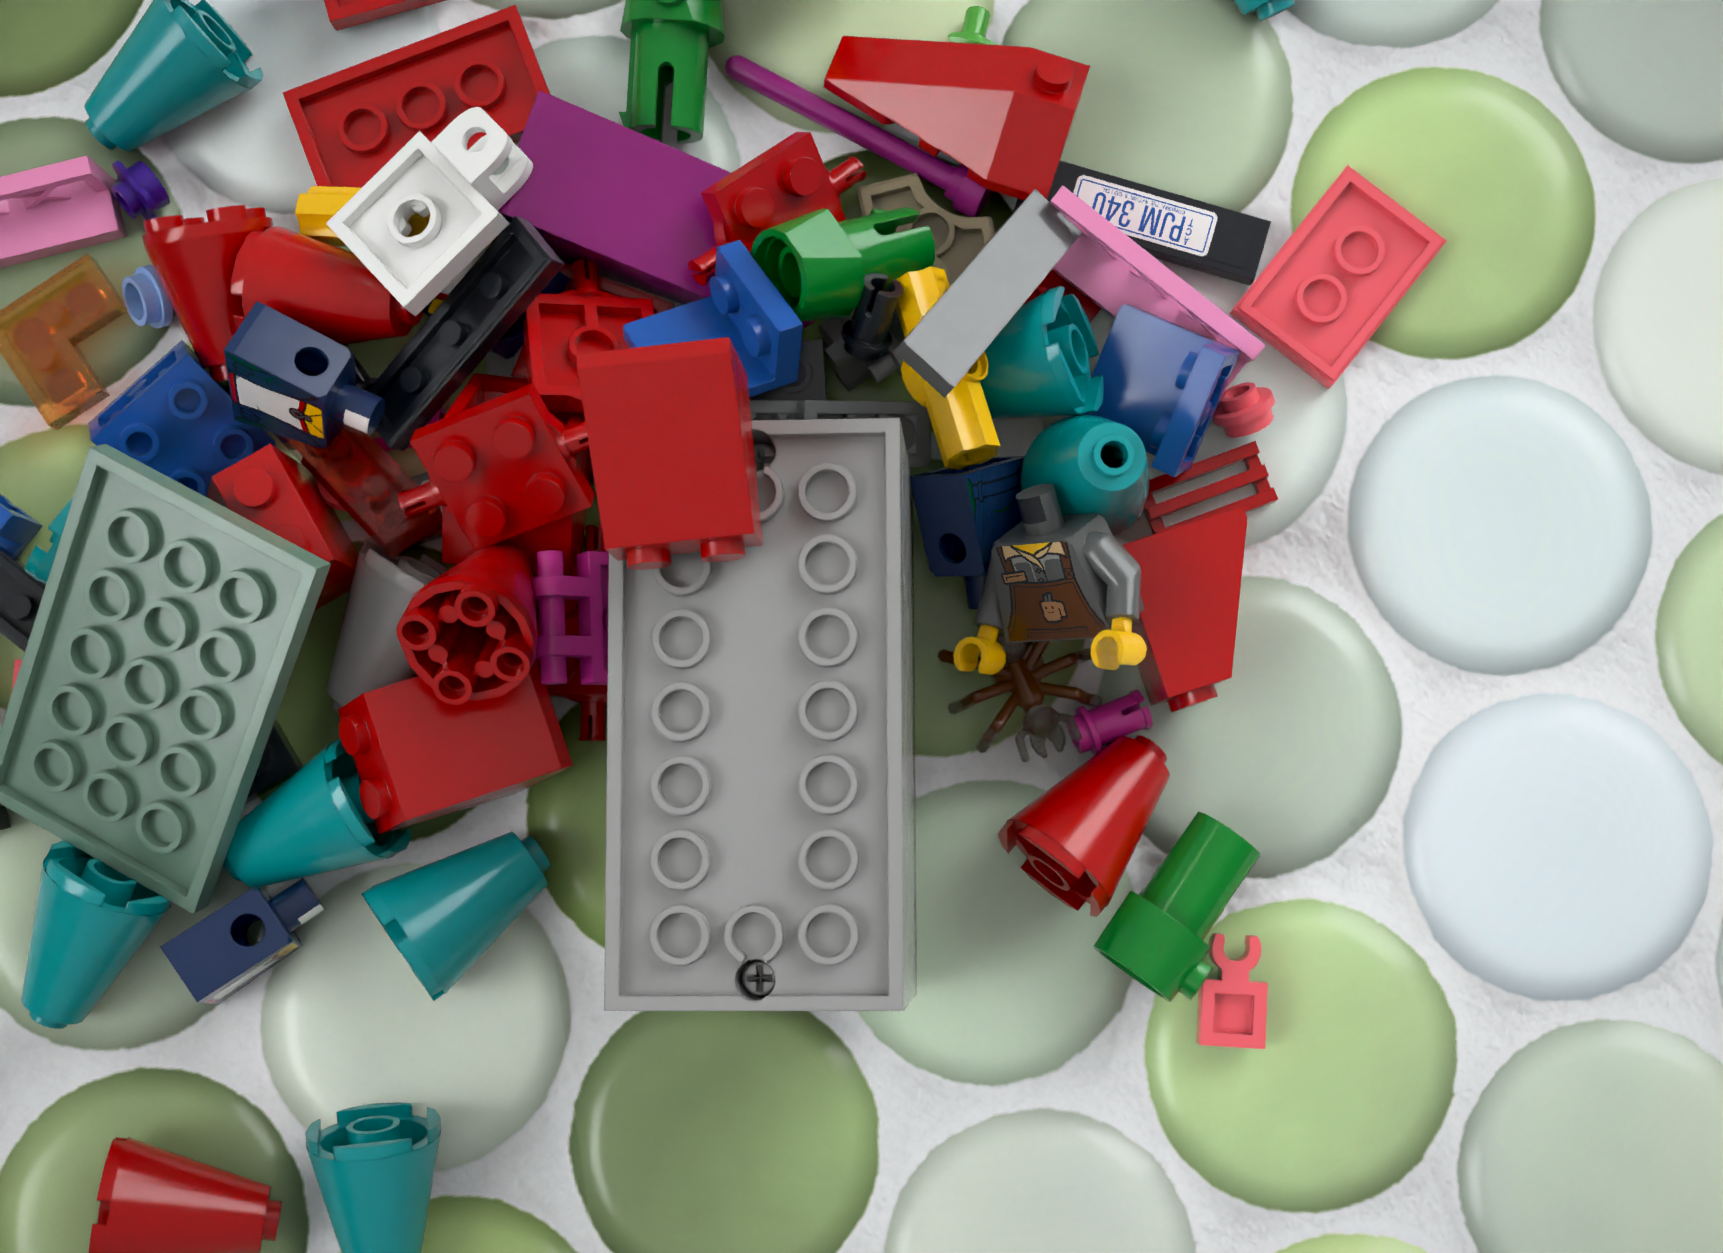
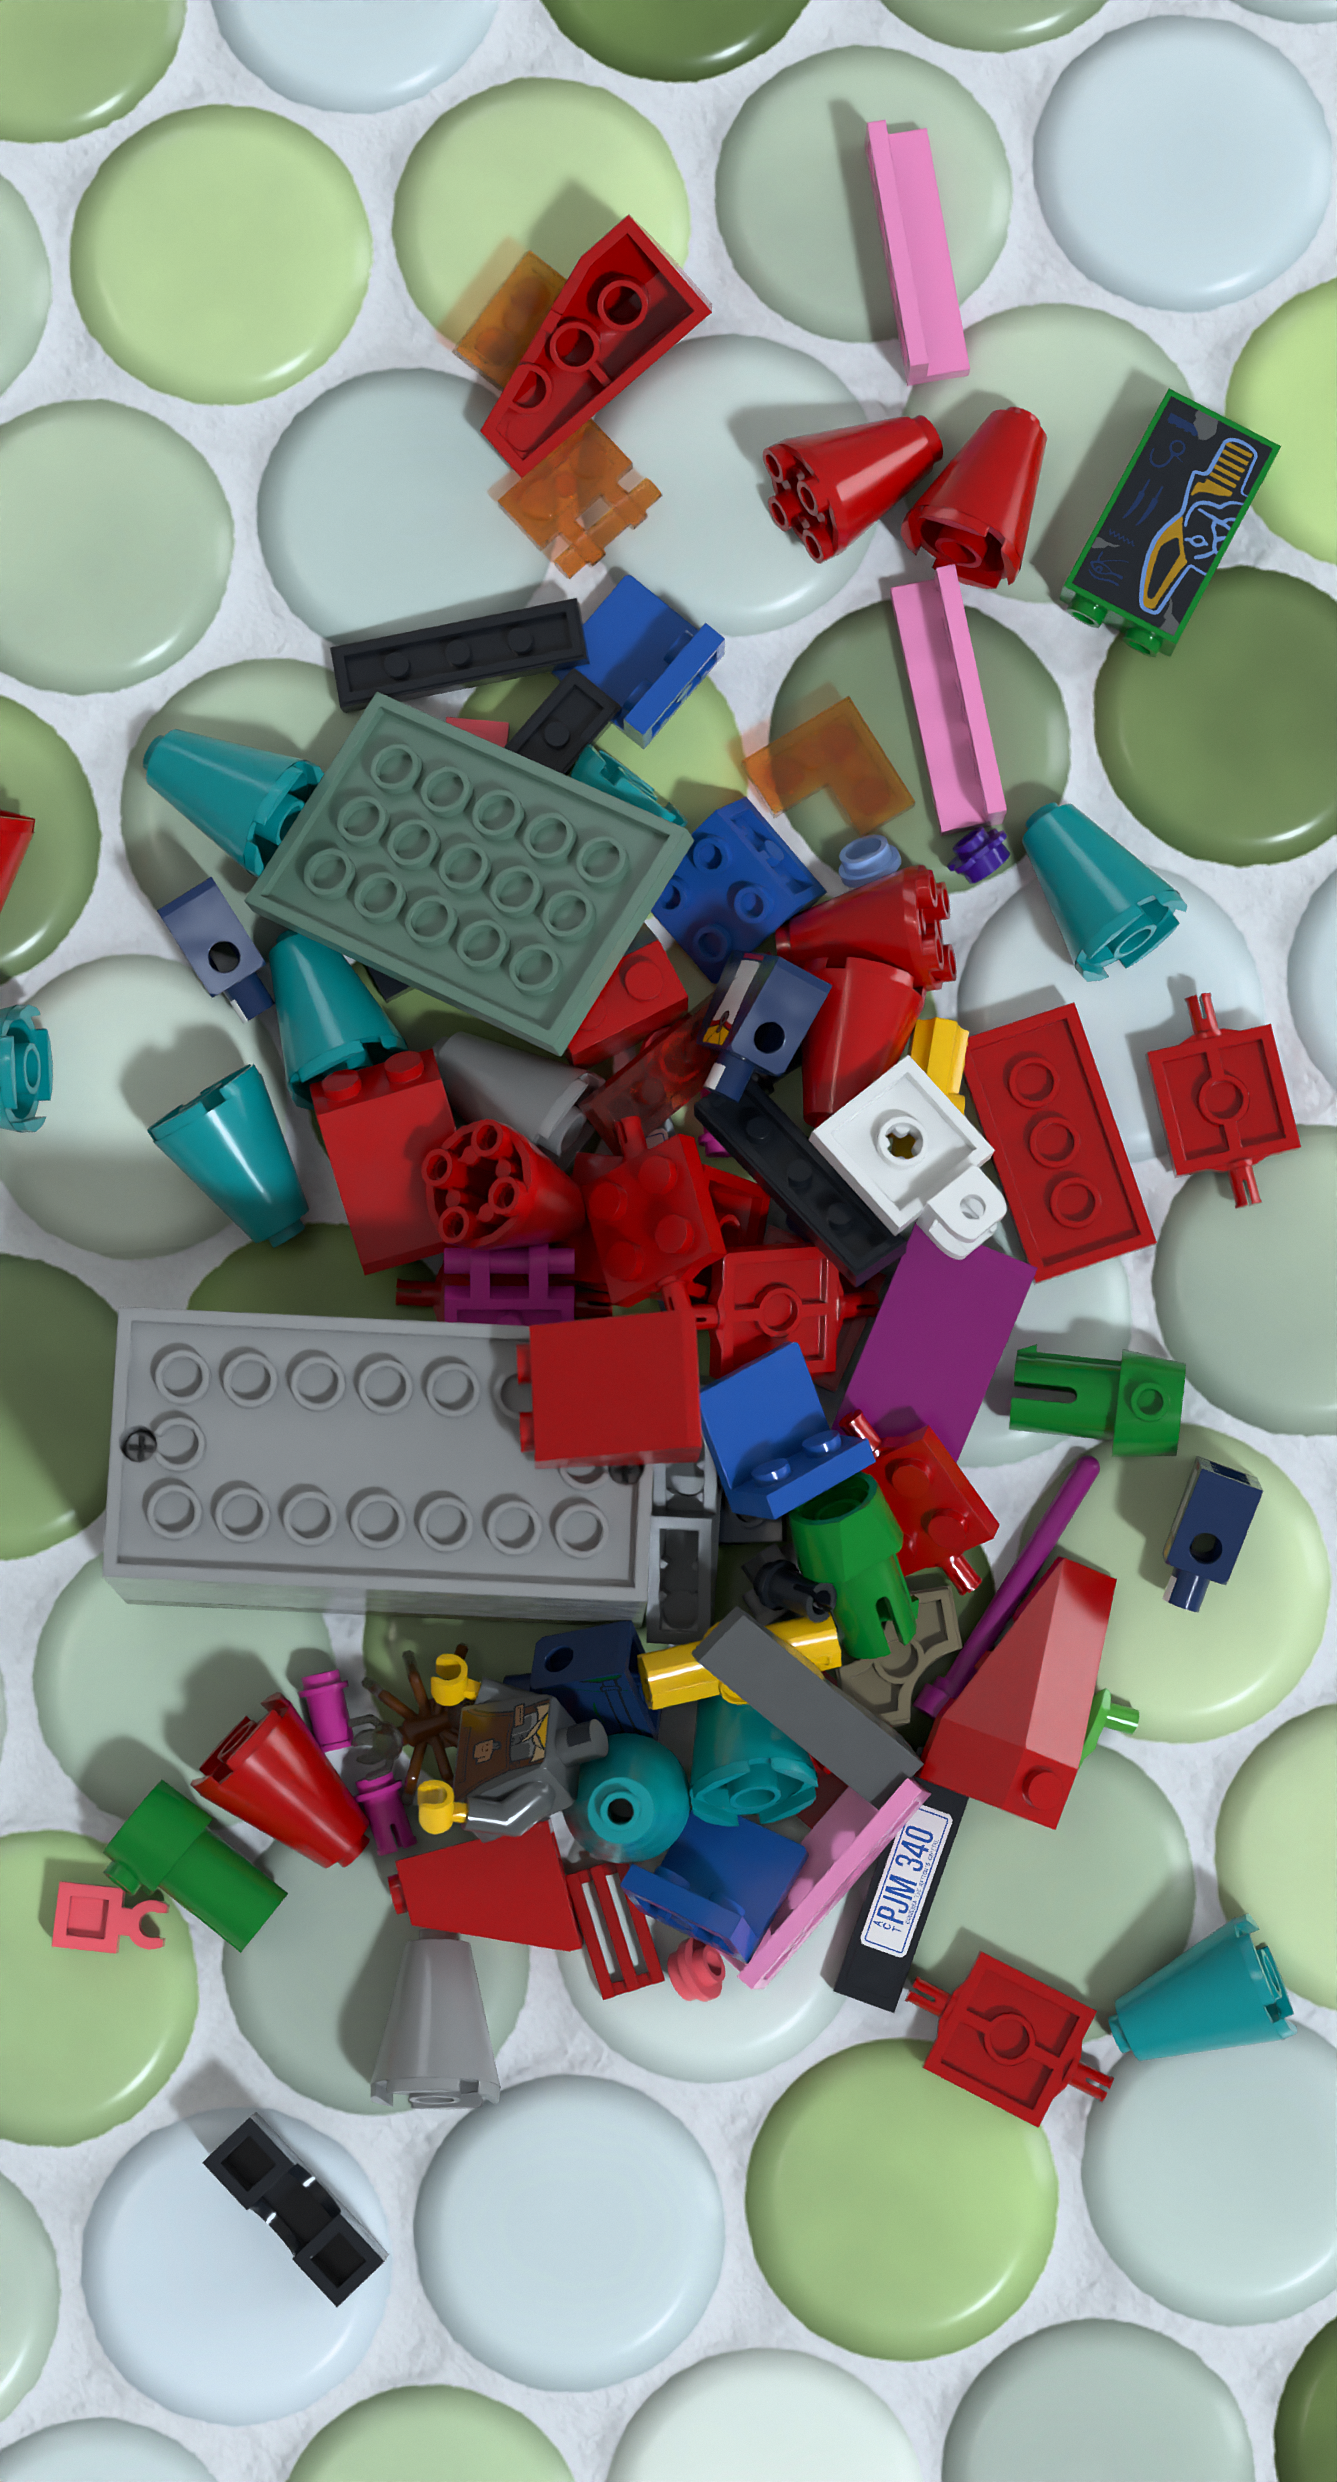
camera: 90 degrees right, 0 degrees up
(1011, 784) = (328, 1709): none -> dark pink pin
(1288, 112) = (1009, 2039): none -> red plate
(1323, 657) = (436, 2030): none -> light grey cone
(1338, 277) = (835, 2081): coral tile -> none
(1526, 761) = (298, 2207): none -> black arch

